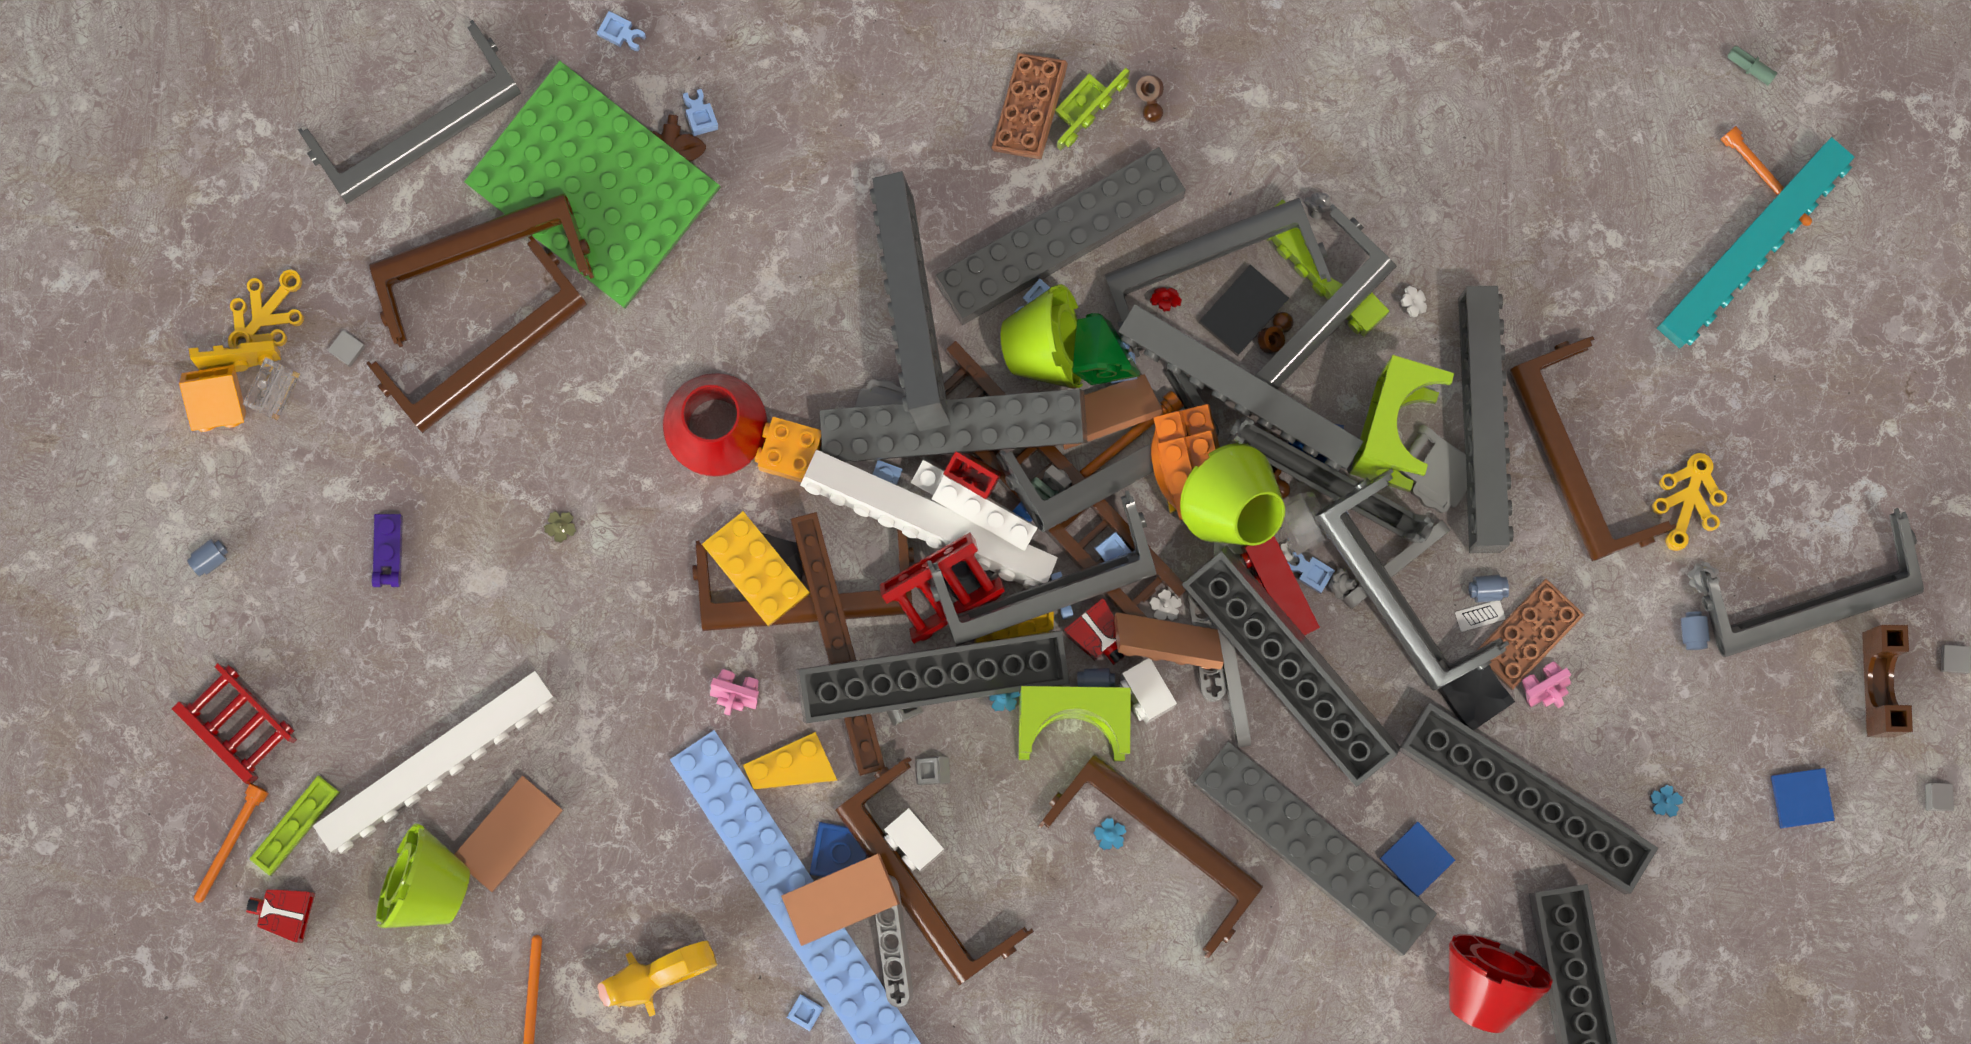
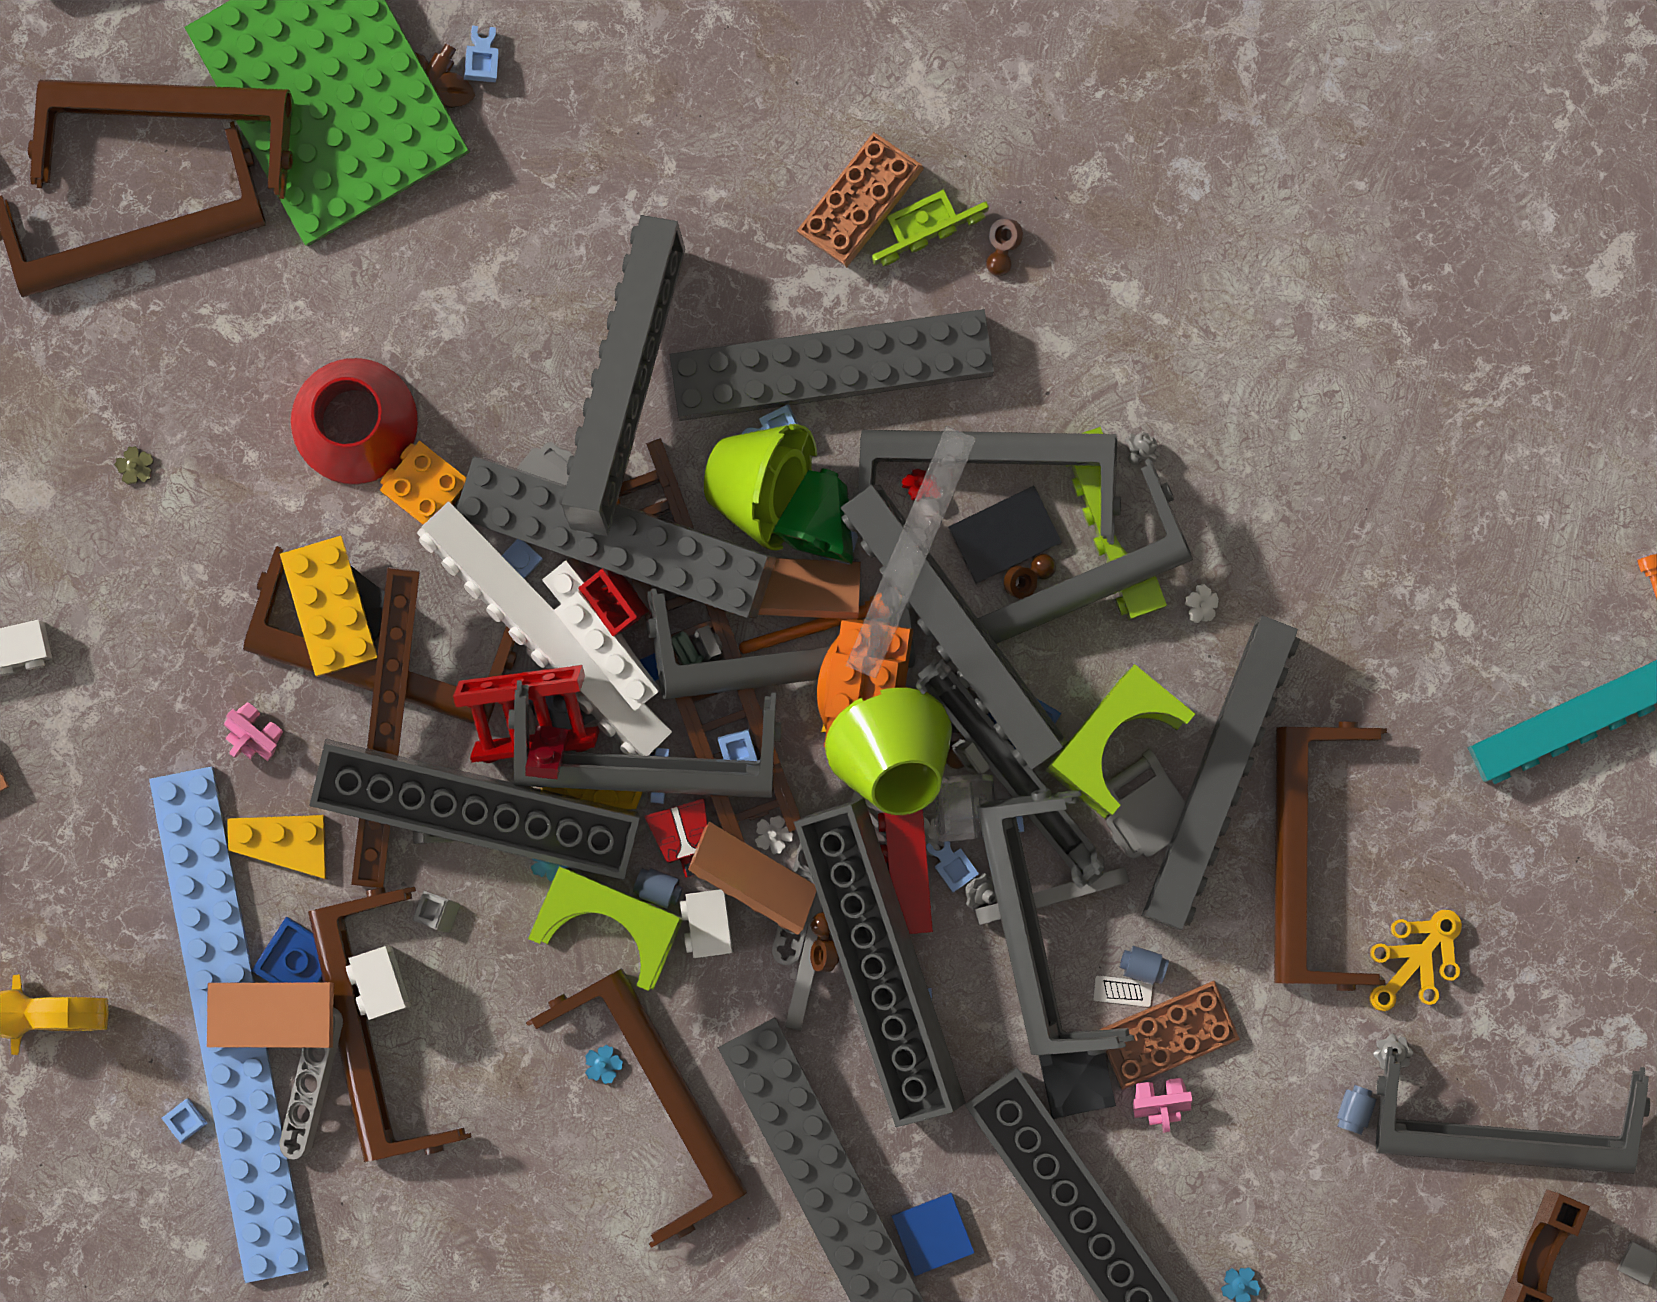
camera: 25 degrees right, 5 degrees up
(971, 608) = (546, 752): none -> dark red plate
(1186, 341) = (911, 552): none -> clear plate
(1244, 675) = (823, 951): none -> reddish brown plate
(1292, 483) = (970, 756): none -> light grey tile

